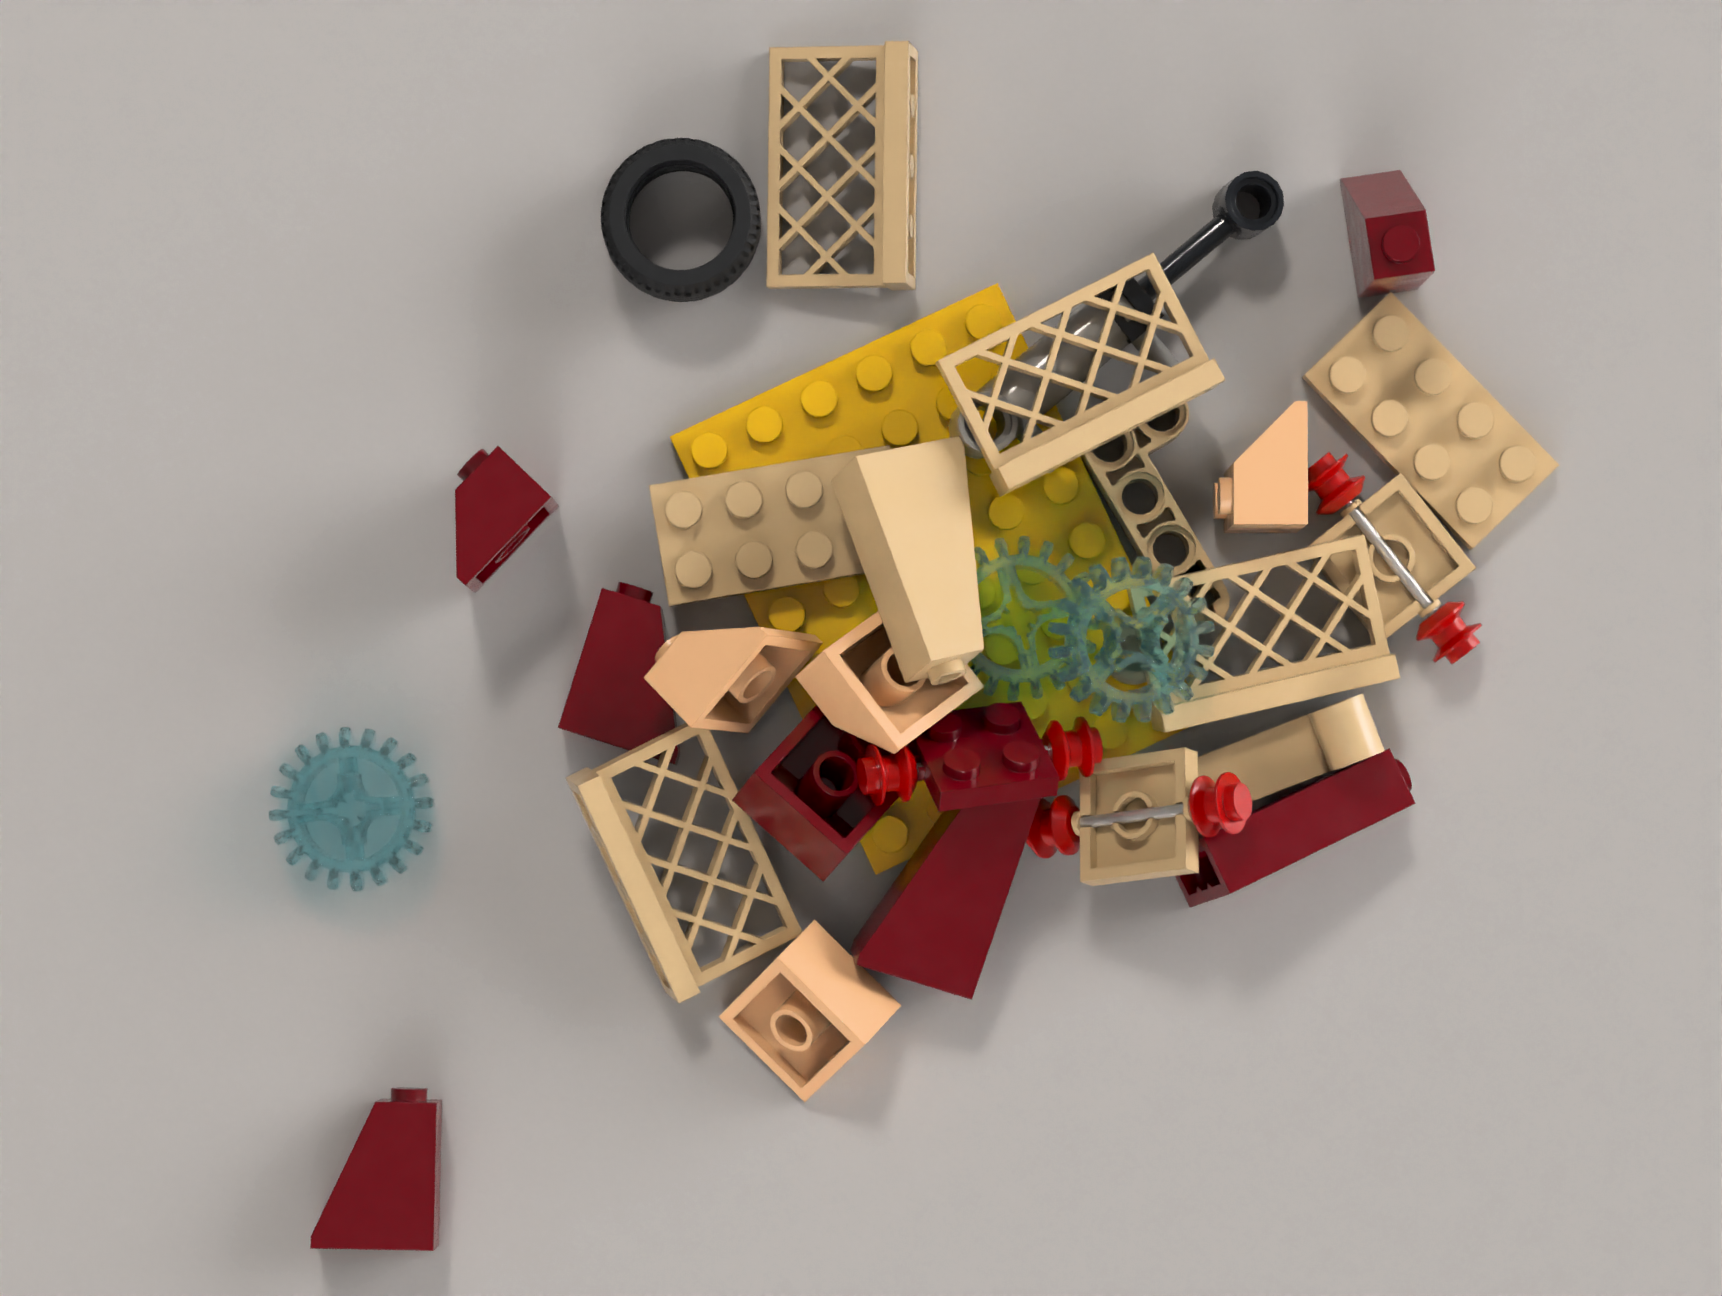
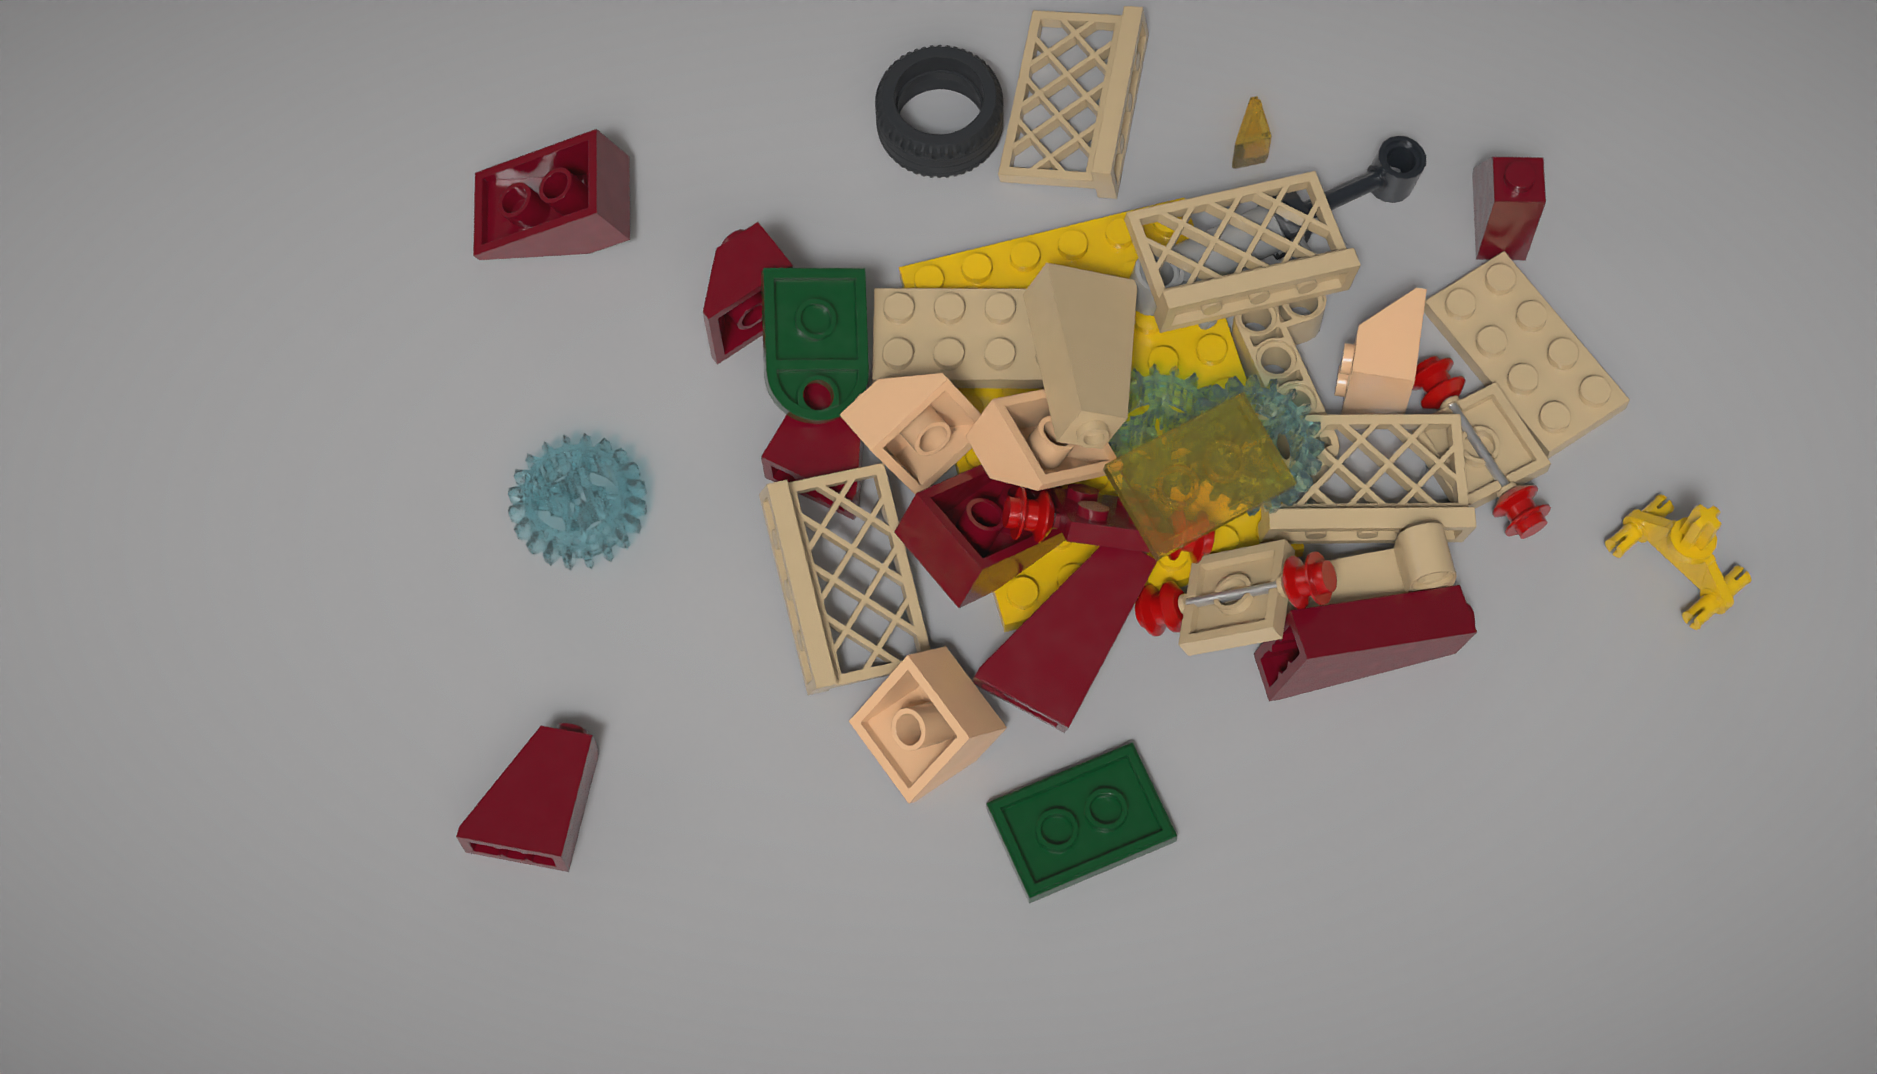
camera: 15 degrees right, 20 degrees down
(232, 421) = (554, 201): none -> dark red slope
(593, 579) = (814, 335): none -> dark green tile
(1001, 1091) = (1081, 822): none -> dark green tile
(1069, 187) = (1253, 137): none -> clear yellow slope
(1078, 707) = (1199, 476): none -> clear yellow tile
(1644, 655) = (1689, 548): none -> yellow axle

